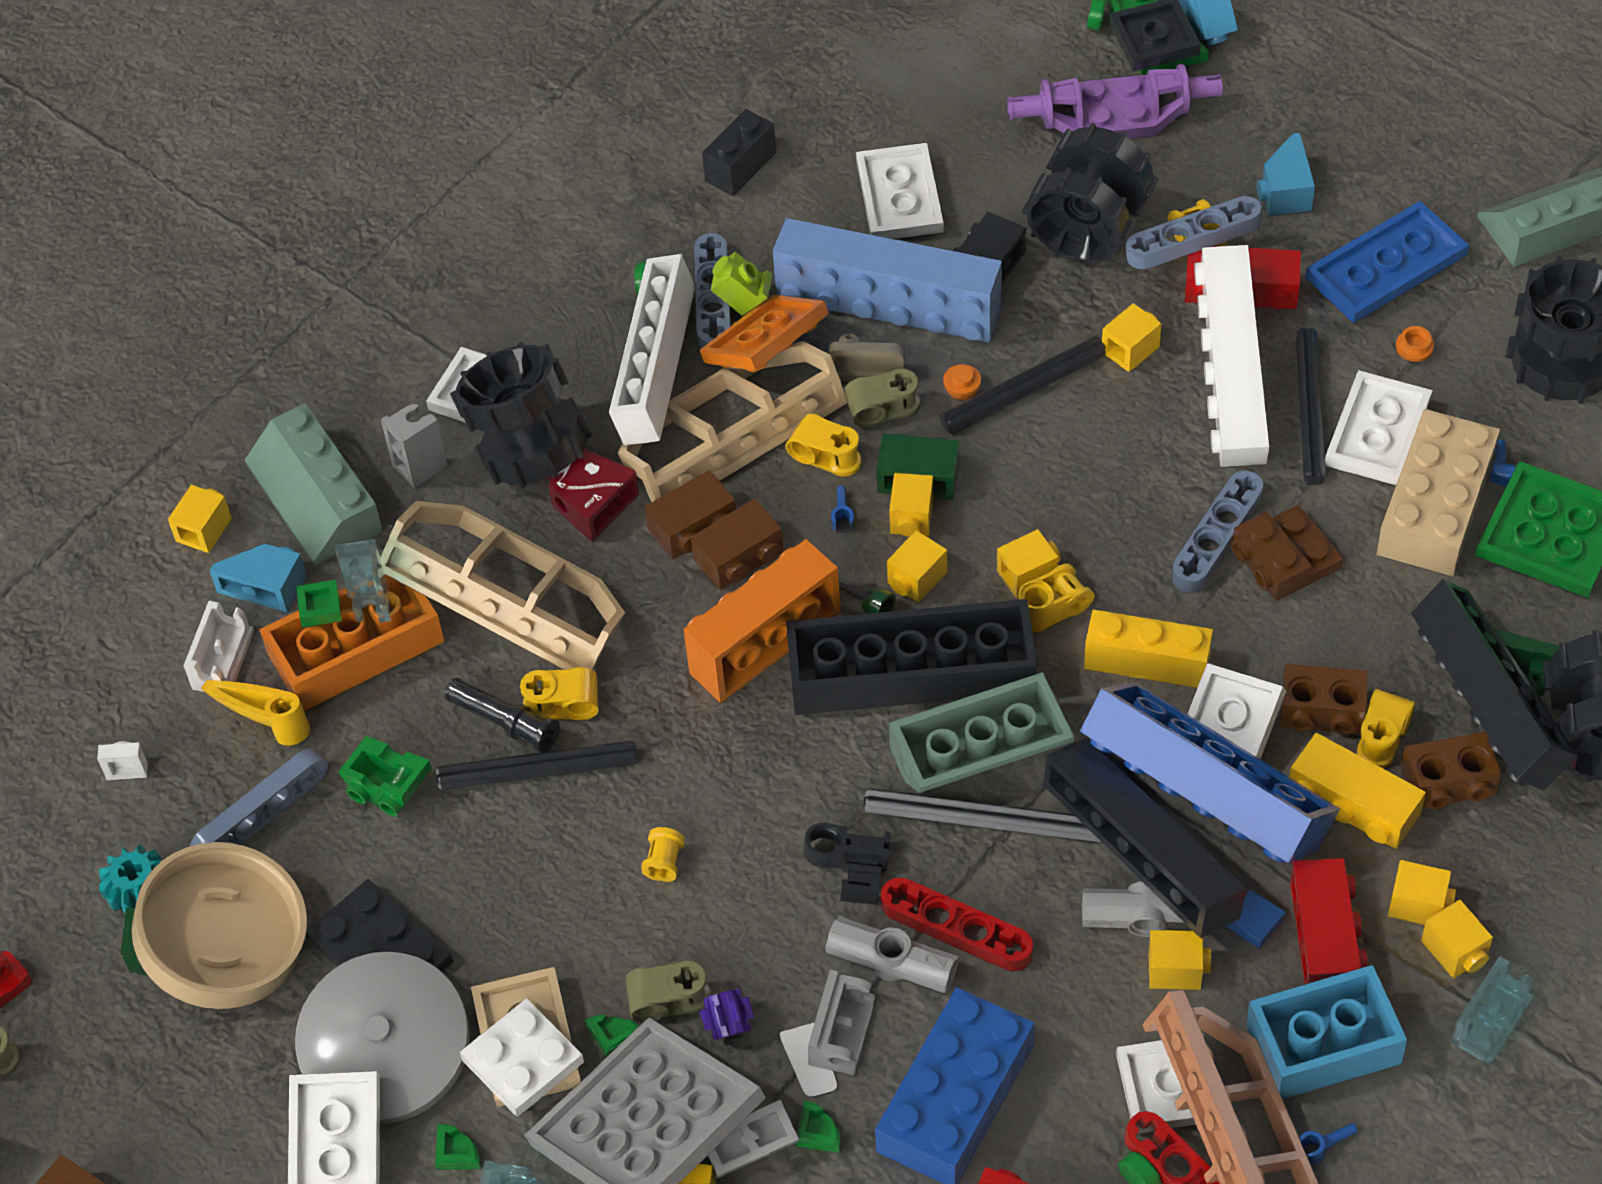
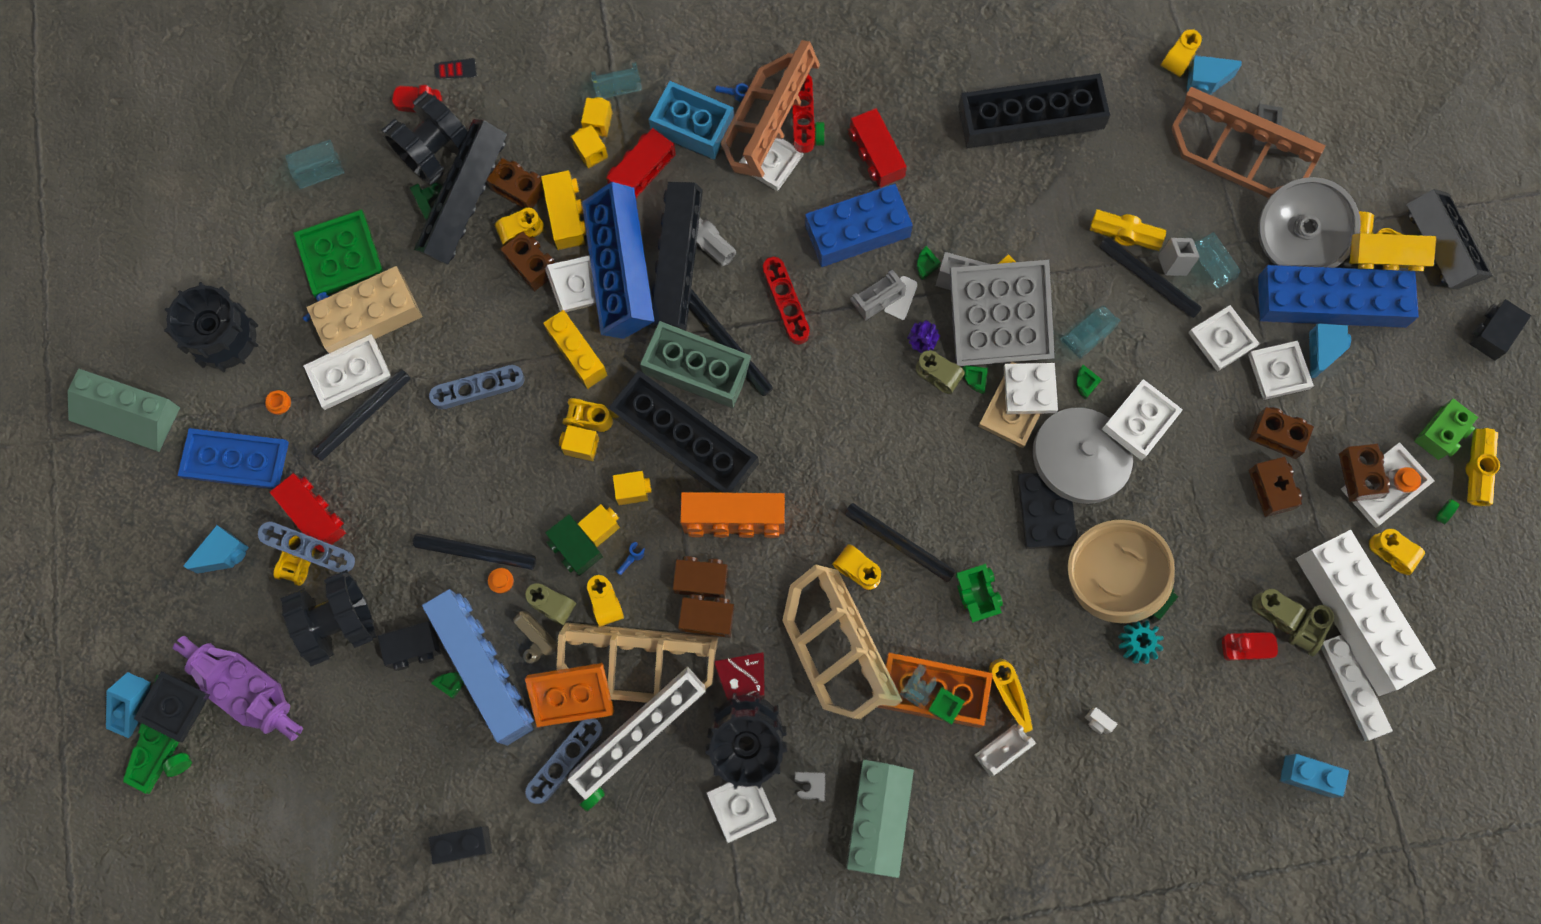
camera: 140 degrees left, 20 degrees up
(200, 518) = (953, 850): yellow brick -> none
(261, 576) = (948, 778): dark azure slope -> none
(265, 800) = (1050, 633): sand blue beam -> none
(516, 720) = (890, 571): black pin -> none
(663, 854) = (883, 440): yellow bush -> none
(740, 283) = (549, 741): lime brick -> none
(862, 858) = (801, 361): black piece -> none
(874, 600) = (667, 488): dark green hinge -> none
(899, 191) = (406, 736): white plate -> none
(915, 964) = (822, 293): light grey piece -> none
(1131, 337) = (397, 526): yellow brick -> none
(1177, 960) = (716, 203): yellow brick -> none
(1233, 356) = (368, 461): white brick -> none
(1257, 919) = (657, 197): blue tile -> none
(1285, 551) = (460, 348): reddish brown plate -> none

